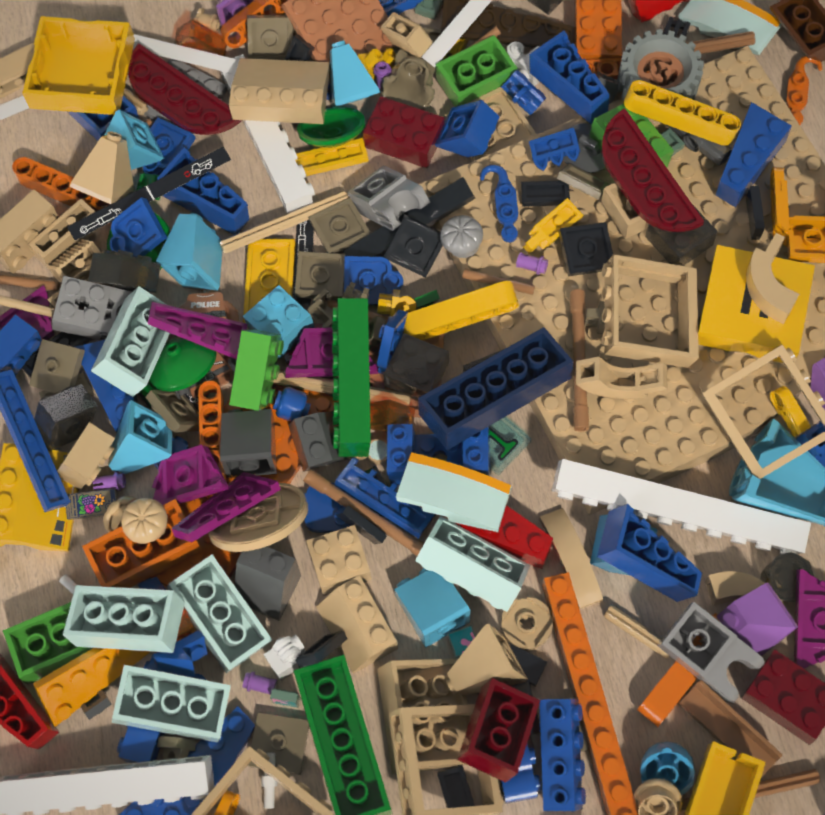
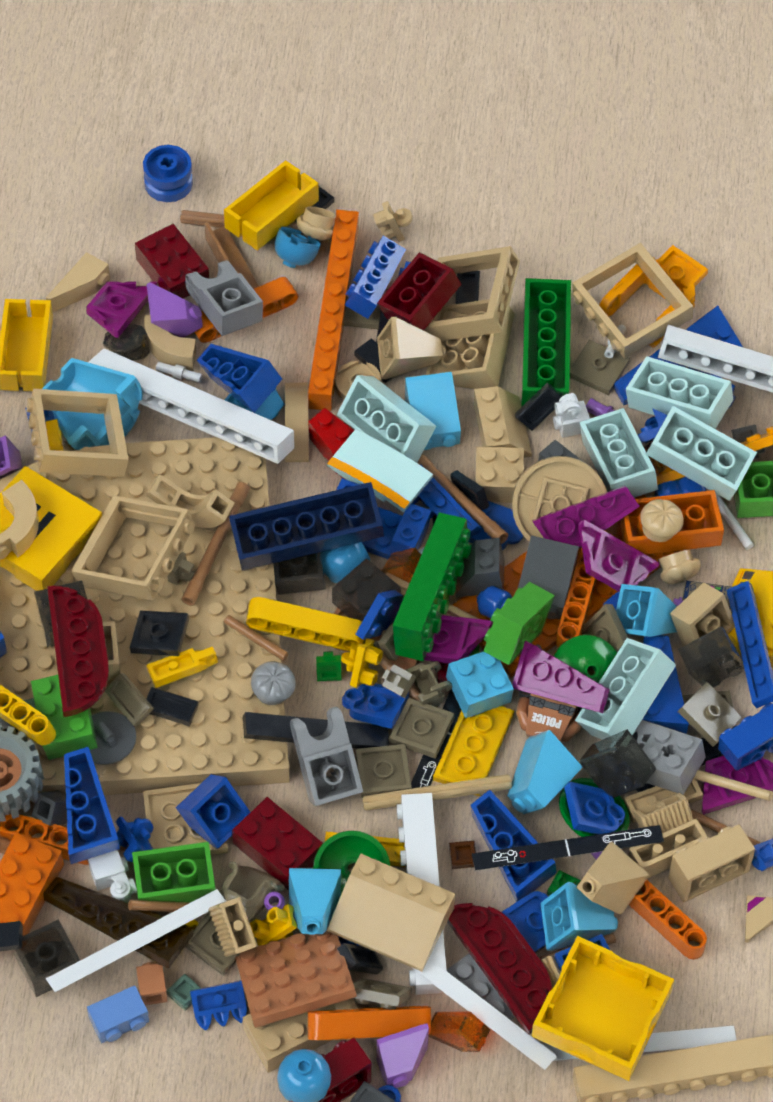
camera: 165 degrees left, 10 degrees down
(210, 21) = (442, 1053): tan brick -> none
(245, 184) = (462, 854): none -> reddish brown tile
(285, 698) = (582, 389): sand green tile -> none
(414, 246) = (315, 708): black tile -> none
(505, 202) = (214, 708): blue piece -> none
(532, 263) = (216, 639): medium lavender pin -> none
(555, 148) = (140, 737): blue plate -> none
(635, 629) = (268, 349): tan axle -> none
(719, 566) = (179, 372): none -> white bar

